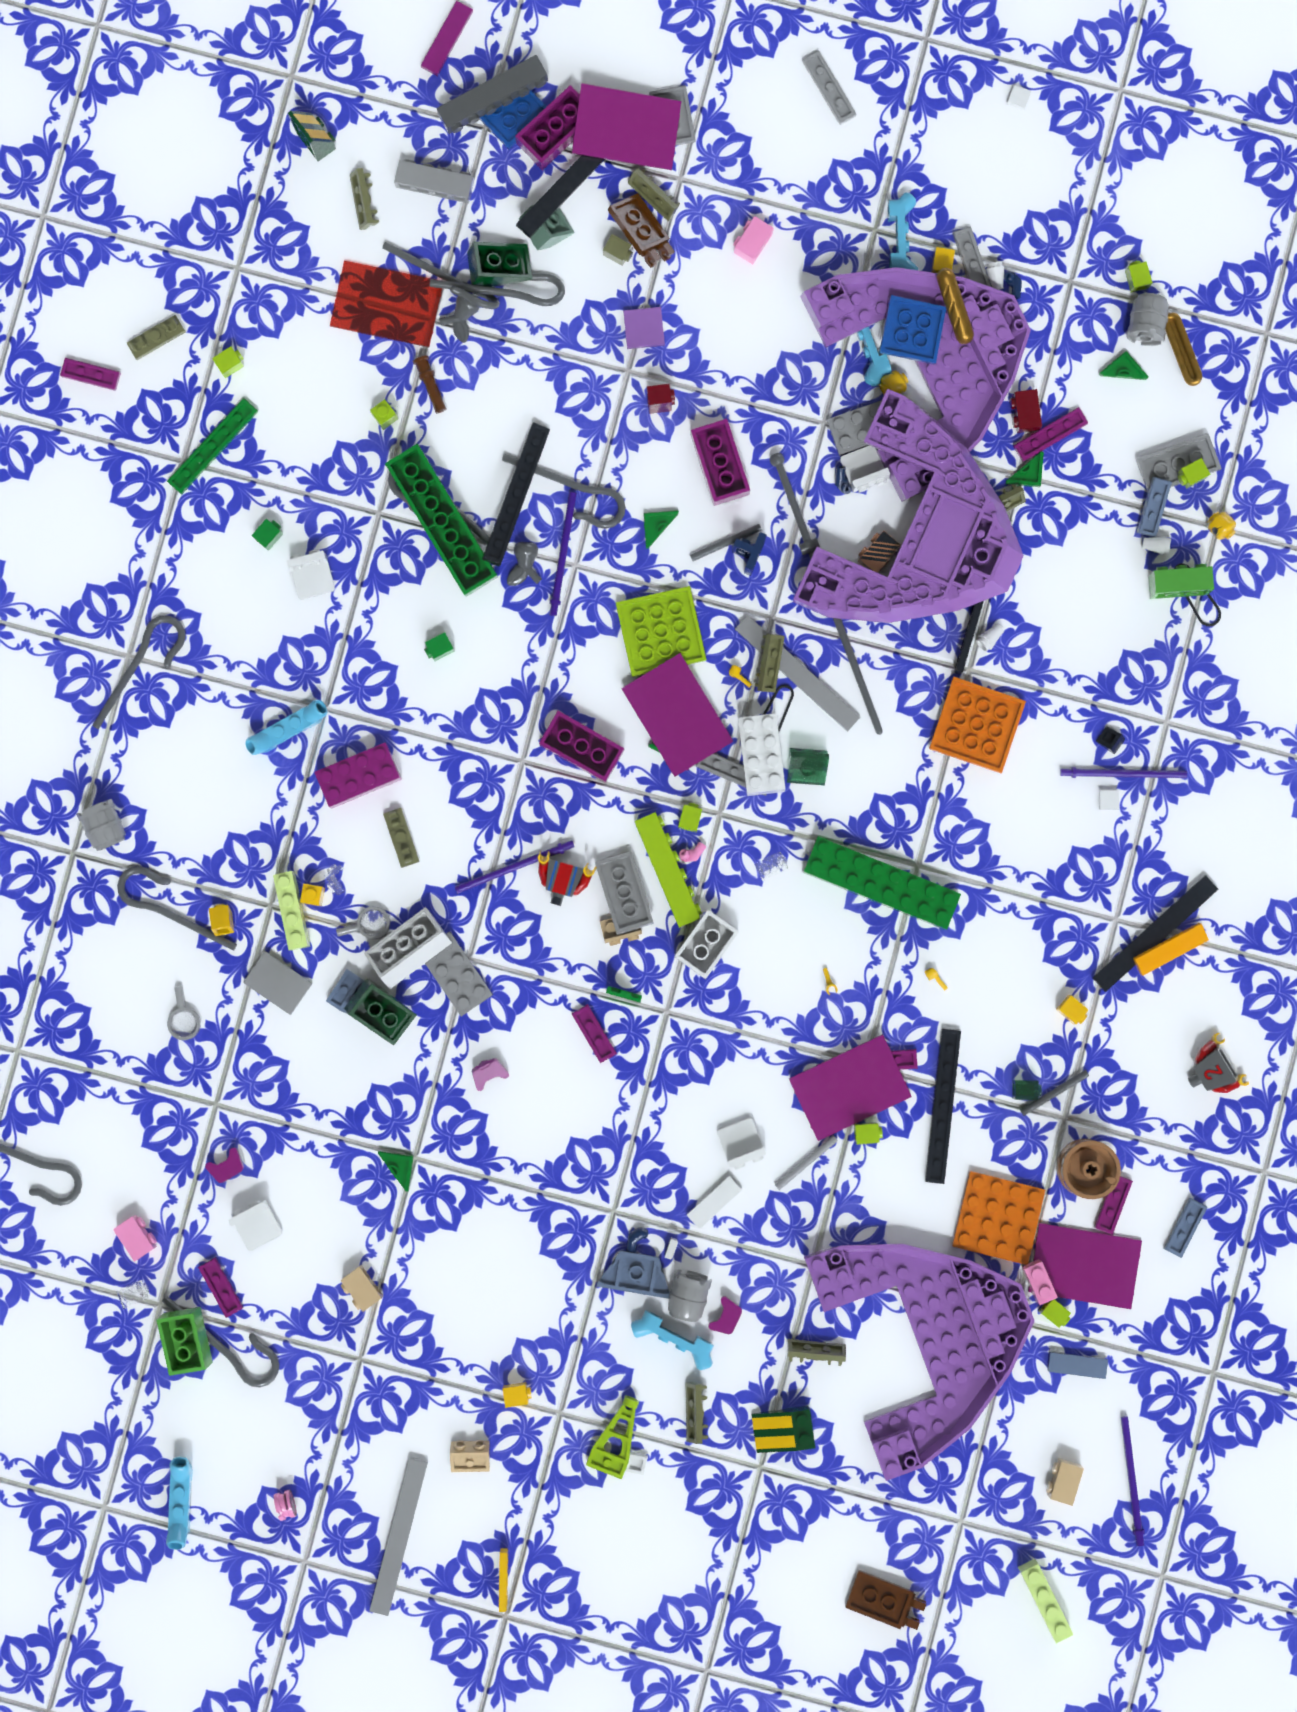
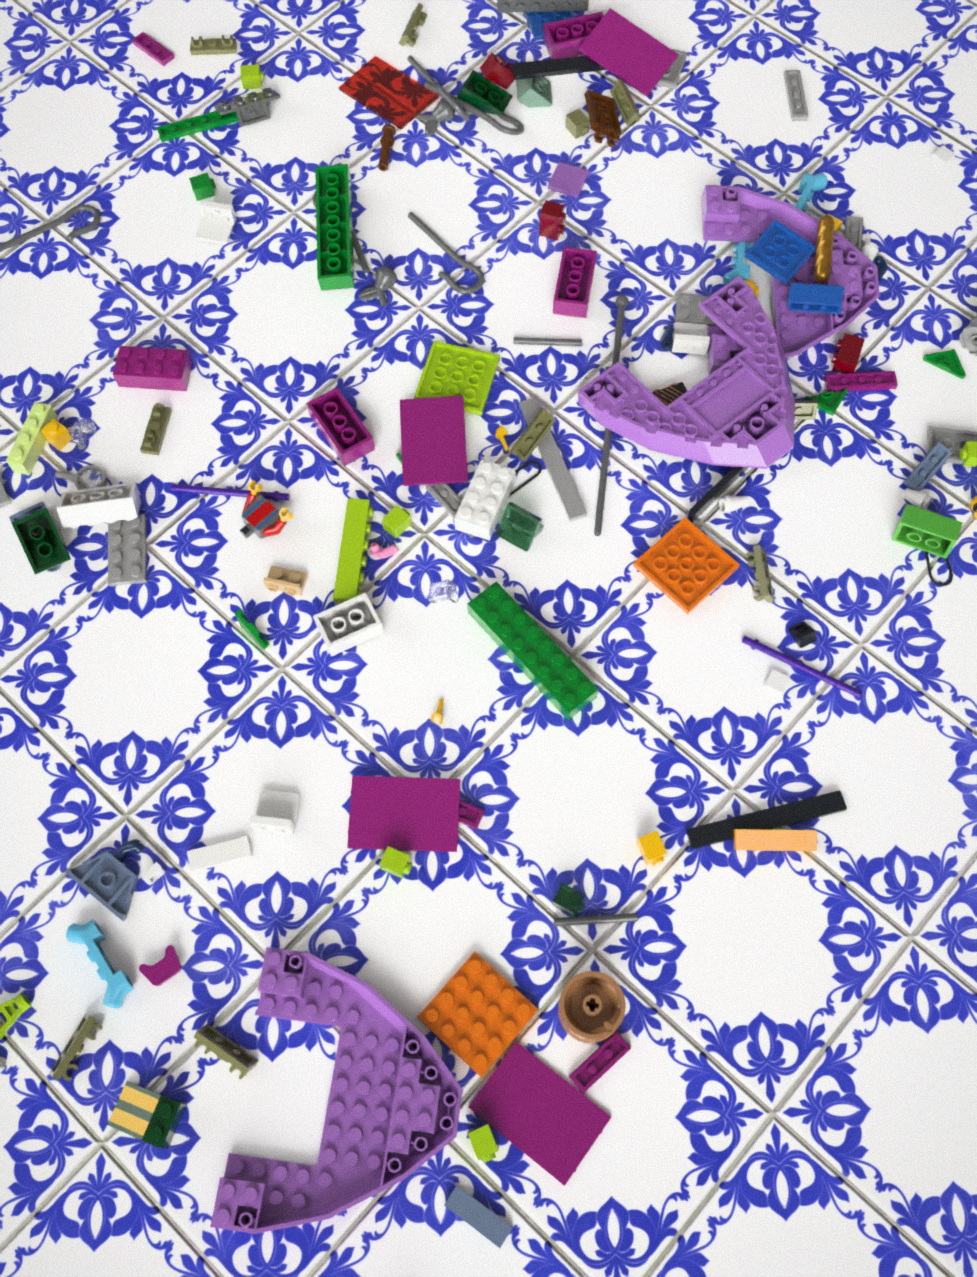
camera: 30 degrees right, 20 degrees down
(250, 404) = (249, 108): none -> dark grey bracket
(287, 728) = (103, 314): medium azure plate -> none
(383, 414) = (339, 149): lime brick -> none
(434, 181) = (469, 34): light grey brick -> none
(438, 647) = (276, 311): green brick -> none
(488, 1070) = (98, 636): piece -> none
(500, 226) = (497, 71): none -> dark red brick
(516, 494) = (401, 235): black tile -> none
(562, 555) = (387, 322): dark purple bar -> none
(594, 1033) = (208, 654): magenta tile -> none
(624, 893) = (304, 551): light grey plate -> none
(656, 523) = (500, 306): green tile -> none
(688, 1295) = (138, 924): light grey piece -> none
(745, 549) = (563, 349): dark blue bracket -> none
(753, 239) = (685, 158): bright pink brick -> none
(806, 1162) = (324, 862): light grey bar -> none
(931, 974) = (535, 750): yellow hand -> none
(943, 1106) = (480, 878): black tile -> none
(972, 370) = (816, 298): none -> blue brick
(1039, 1282) = (482, 1099): bright pink brick -> none
(1049, 699) = (761, 574): none -> olive plate
(1185, 1227) = (663, 1128): sand blue tile -> none
(1214, 1069) = (767, 977): dark grey torso -> none

